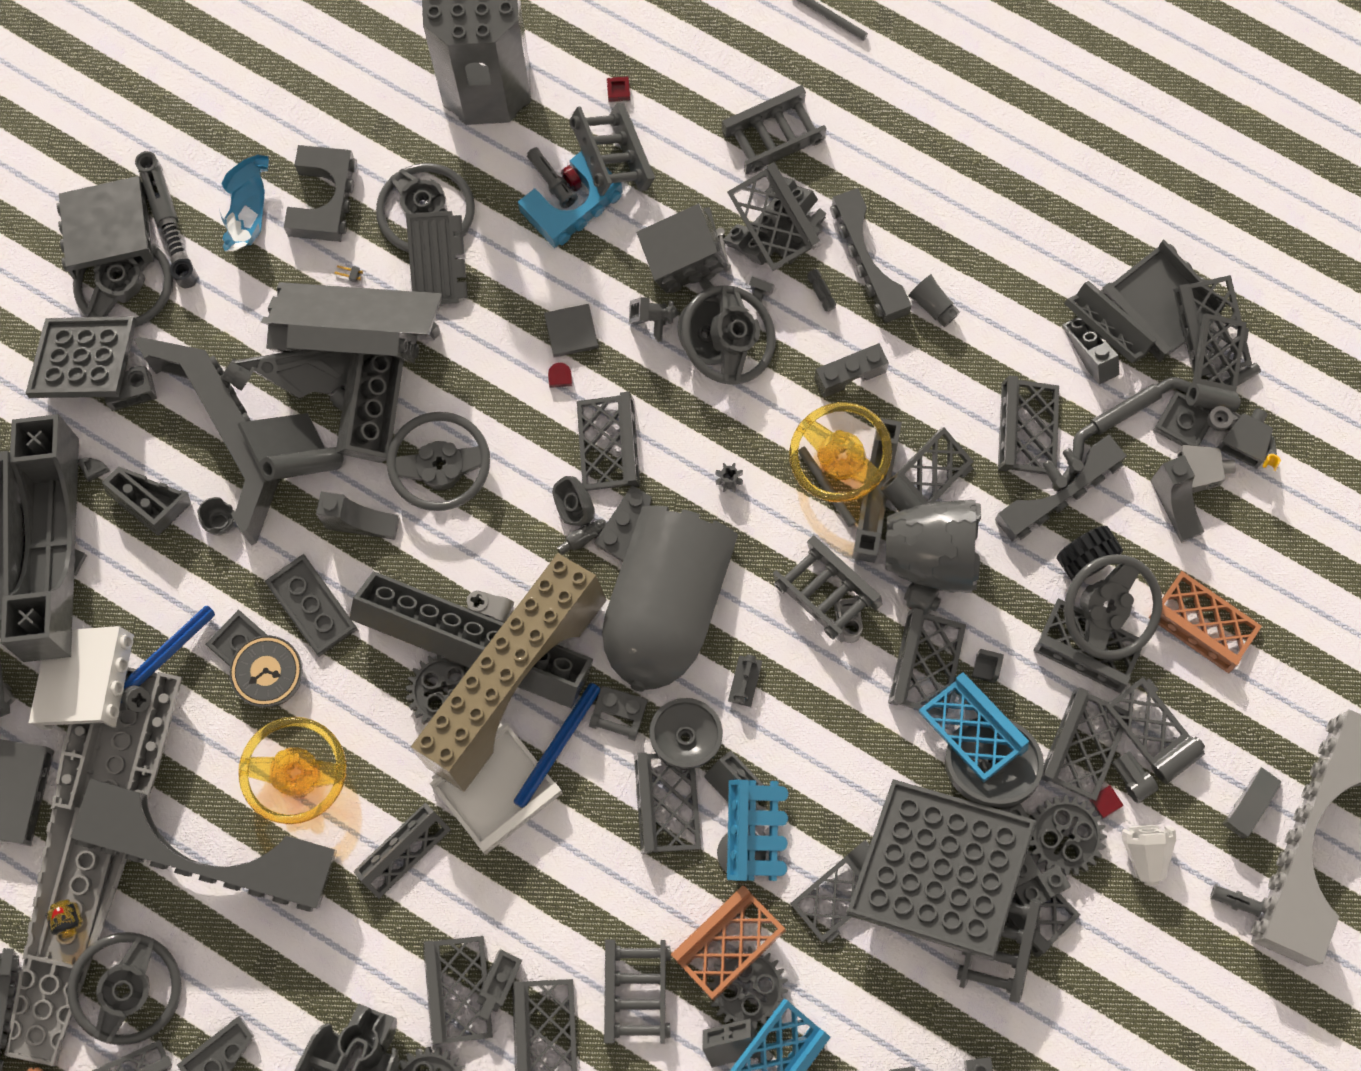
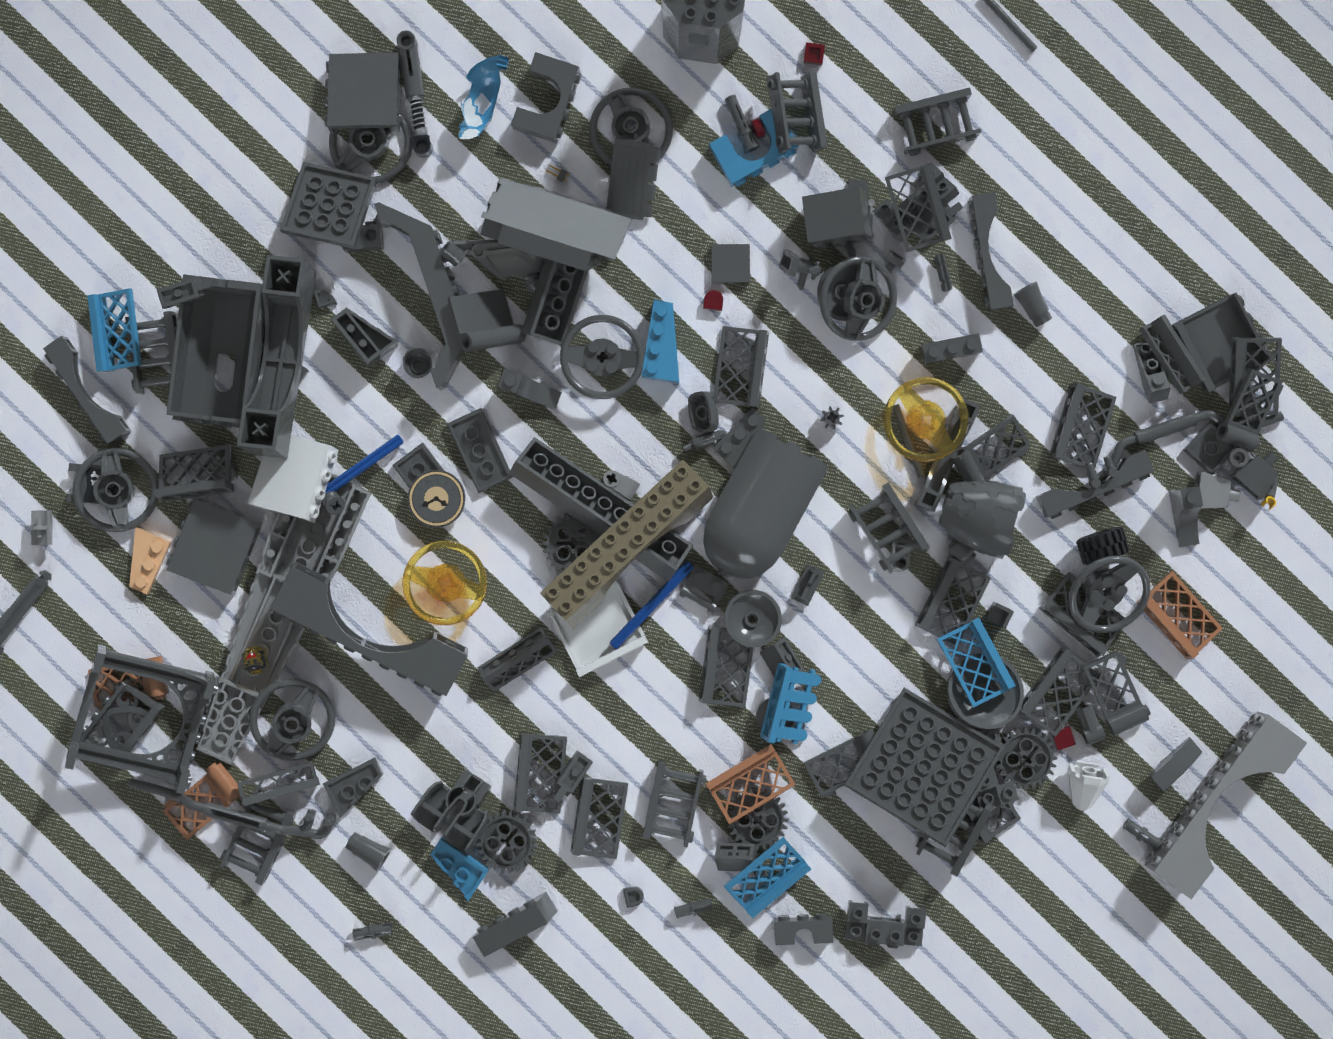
camera: 10 degrees right, 15 degrees up
(508, 443) = (661, 348): none -> dark azure wedge

